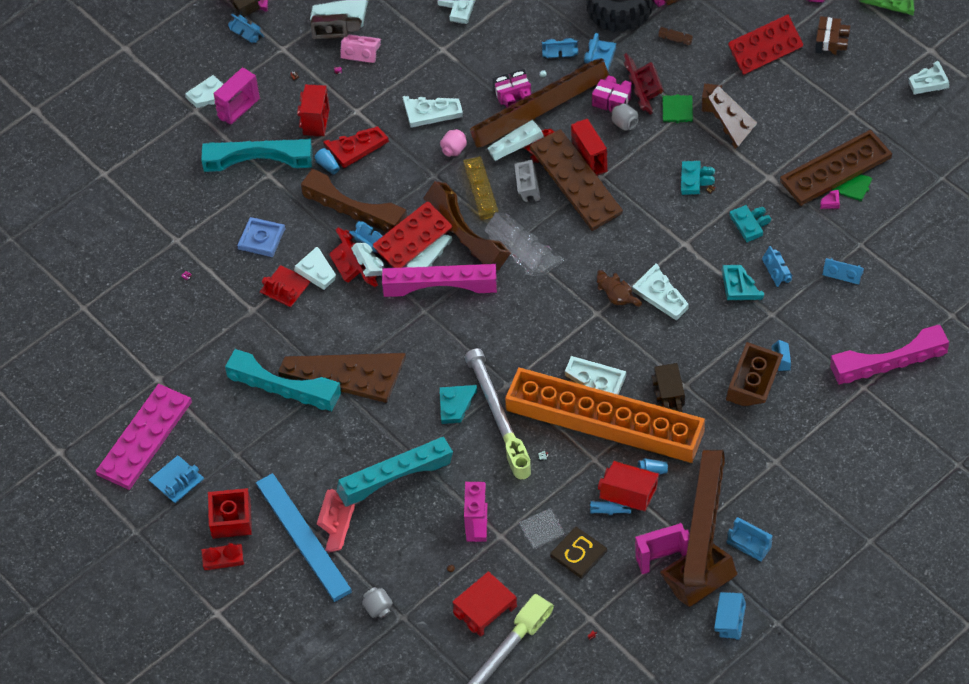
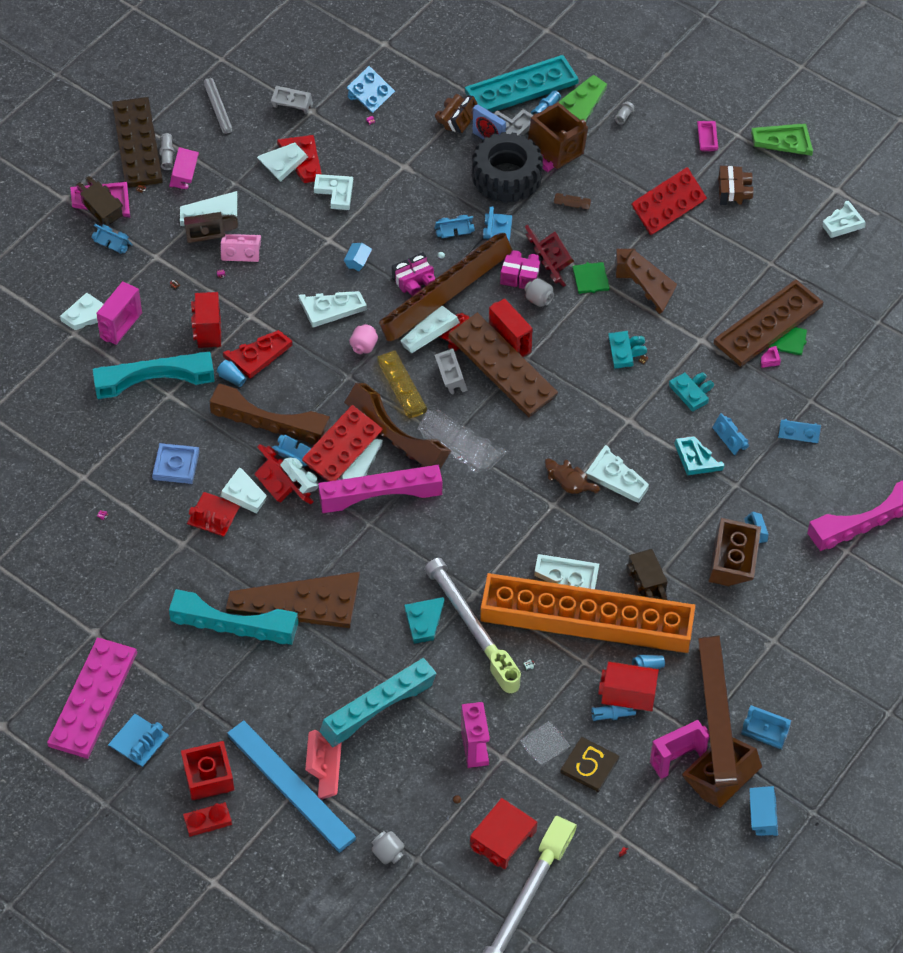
camera: 15 degrees left, 0 degrees up
(464, 66) = (357, 256): none -> dark azure piece

